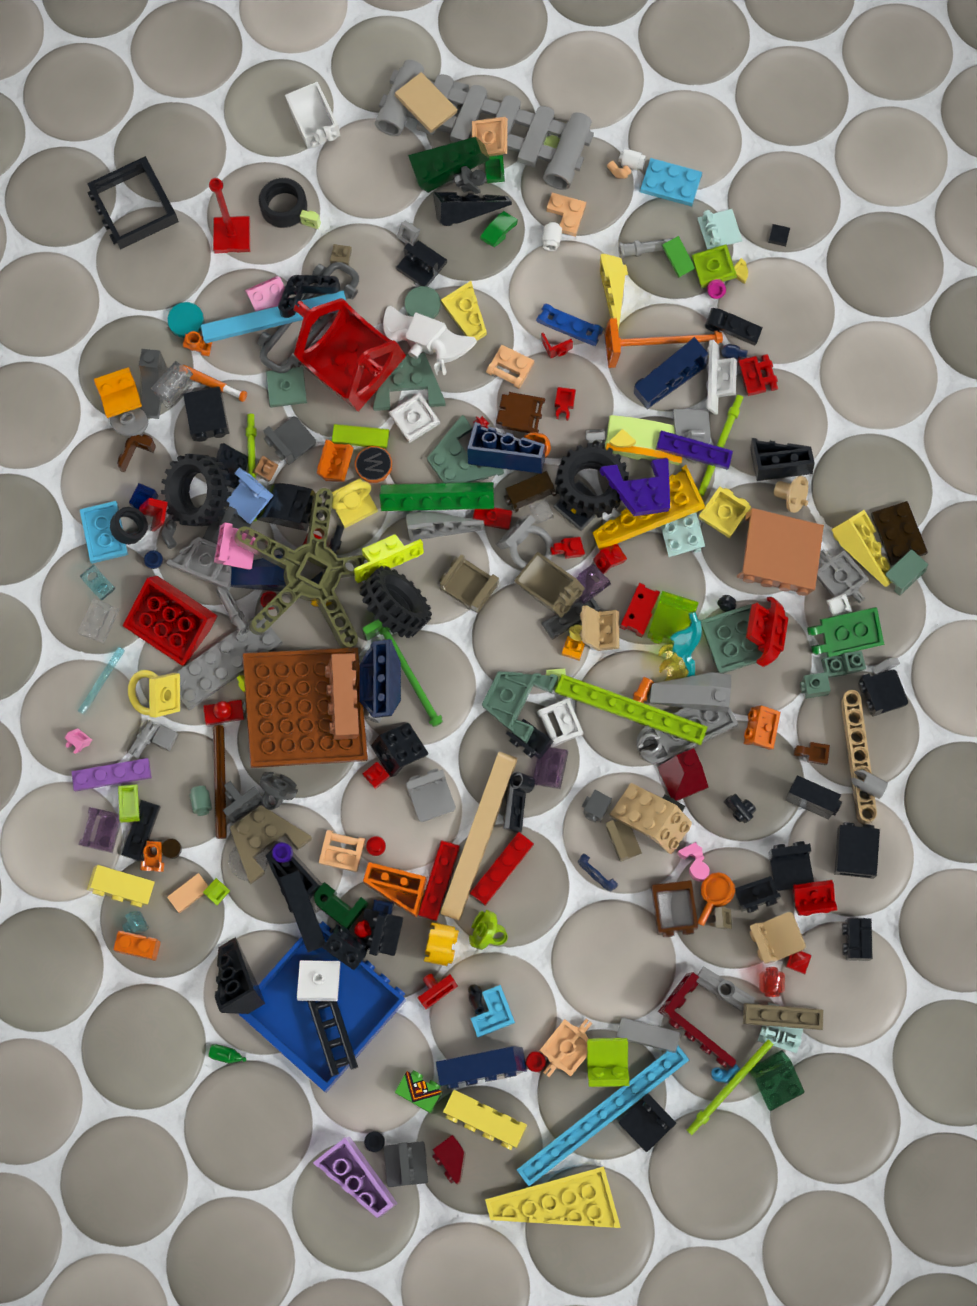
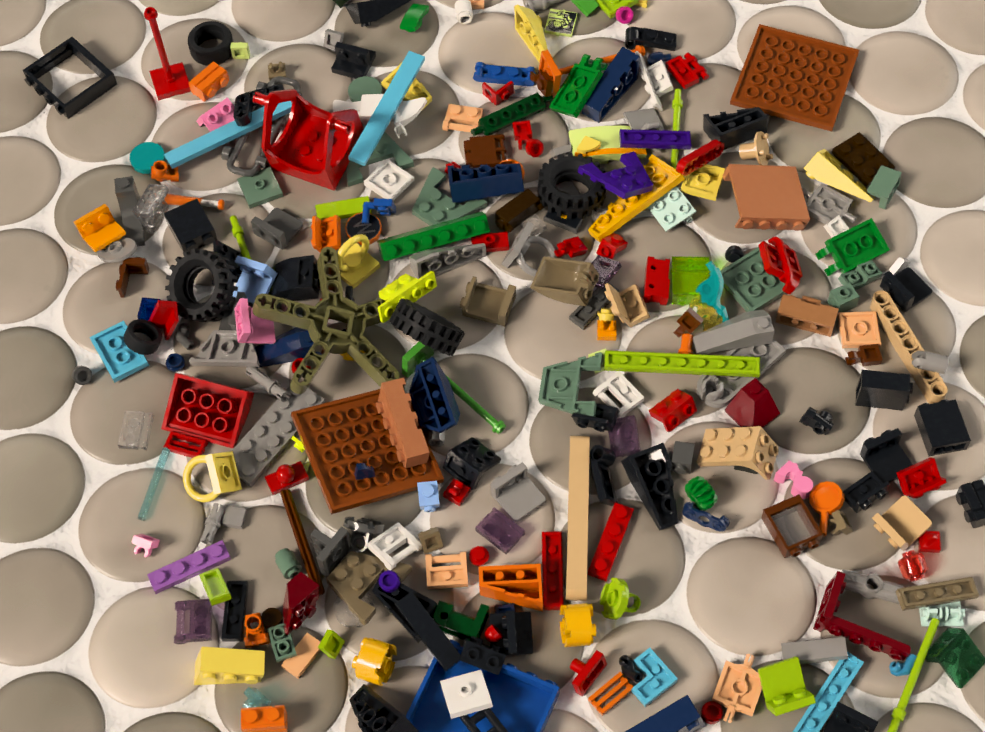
camera: 20 degrees left, 15 degrees down
(62, 547) = (82, 375): none -> dark grey tile
(100, 585) = (128, 398): clear light blue bracket -> none
(153, 658) = (199, 450): none -> red tile
(173, 876) = (281, 643): none -> sand green slope
(197, 845) = (299, 601): none -> dark red slope
(249, 922) = (374, 661): none -> yellow brick
(265, 468) = (262, 254): medium nougat tile -> none
(269, 248) = (209, 81): none -> orange brick
(290, 735) = (363, 471): none -> dark blue tile
(299, 807) = (392, 540): none -> white plate
(335, 817) = (430, 540): none -> dark tan tile
(347, 773) = (428, 496): none -> light blue bracket
(397, 450) = (382, 206): none -> blue plate
(403, 827) = (500, 530): none -> clear purple plate
(433, 339) = (386, 108): none -> medium azure tile
(467, 1009) = (624, 682): none -> orange tile
(560, 376) = (513, 113): none -> dark green plate
(561, 819) = (651, 478): none -> black wedge
(570, 422) = (534, 147): none -> red tile
(600, 849) = (701, 493): none -> green gear
(603, 351) = (544, 82): none -> reddish brown plate
(607, 753) = (674, 409): none -> red bracket
(623, 840) = (720, 481): dark tan panel -> none
(636, 366) = (578, 86): none -> green tile
(648, 277) = (560, 22): none -> piece
(652, 667) = (688, 322): none -> reddish brown plate
(728, 489) = (700, 157): none -> red beam
(762, 727) = (808, 347): orange bracket -> none
(773, 694) = (807, 314): none -> medium nougat piece
(818, 722) = (858, 329): none -> light nougat plate
(866, 416) = (795, 77): none -> dark orange plate

